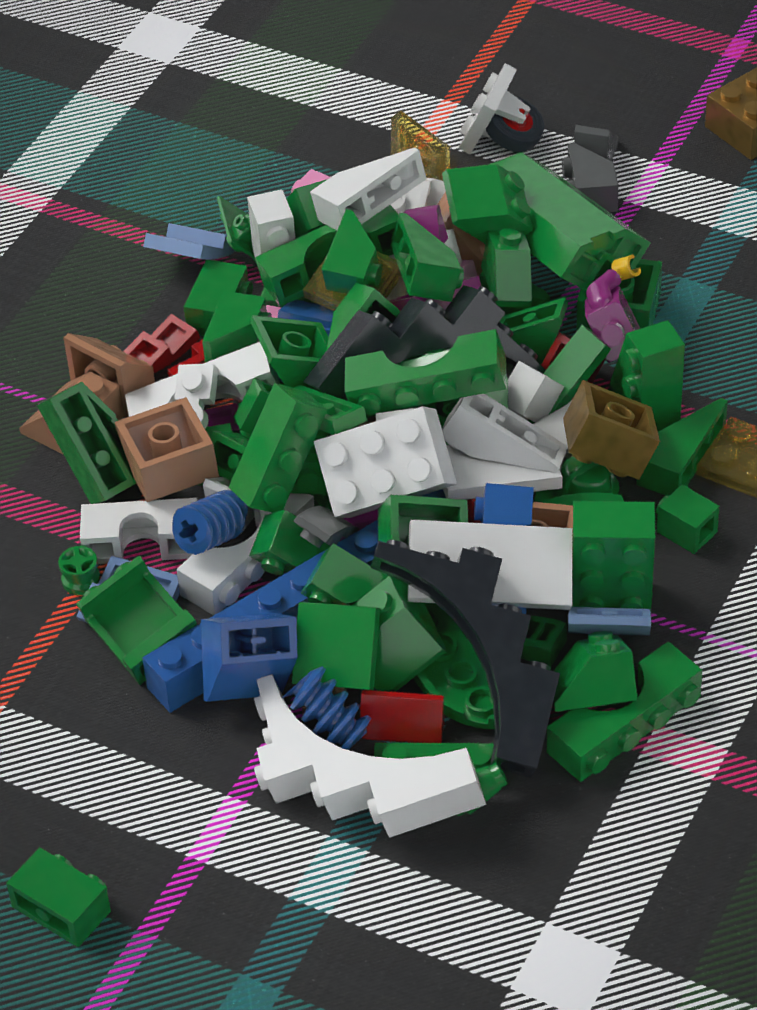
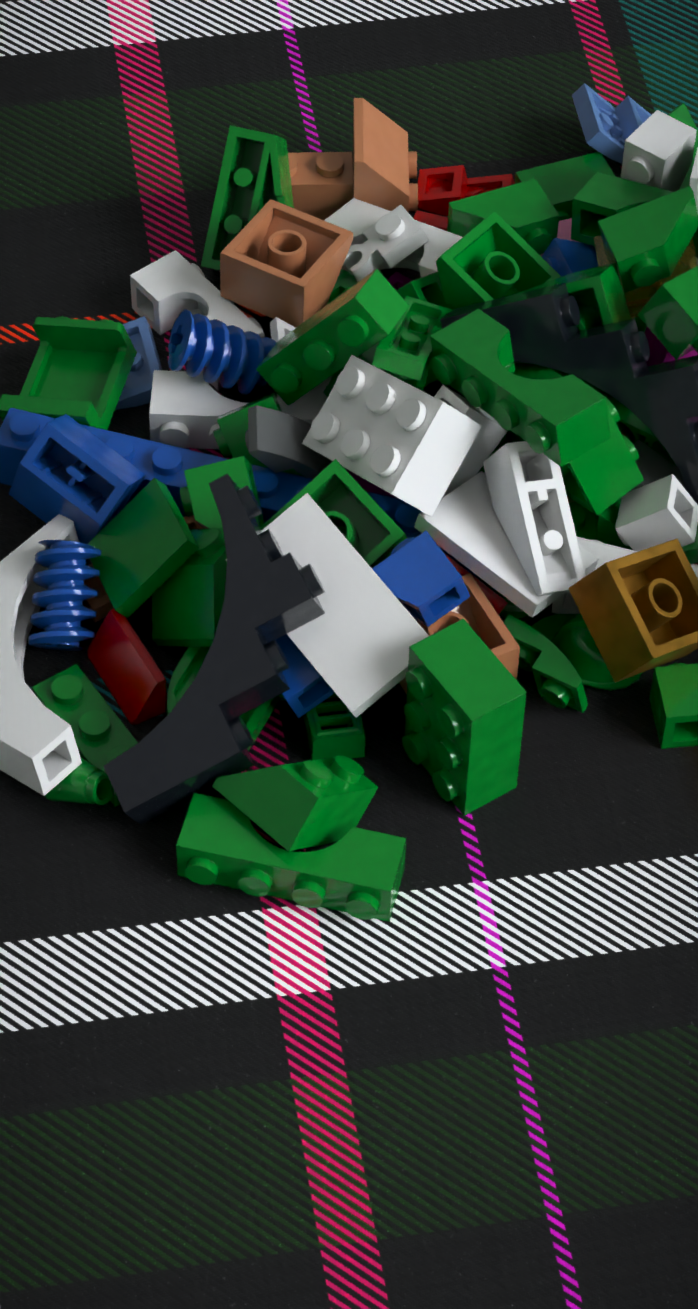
camera: 50 degrees right, 5 degrees up
(78, 569) = (108, 299): green wheel -> none
(617, 620) = (391, 770): medium blue slope -> none
(687, 518) = (622, 767): green brick -> none

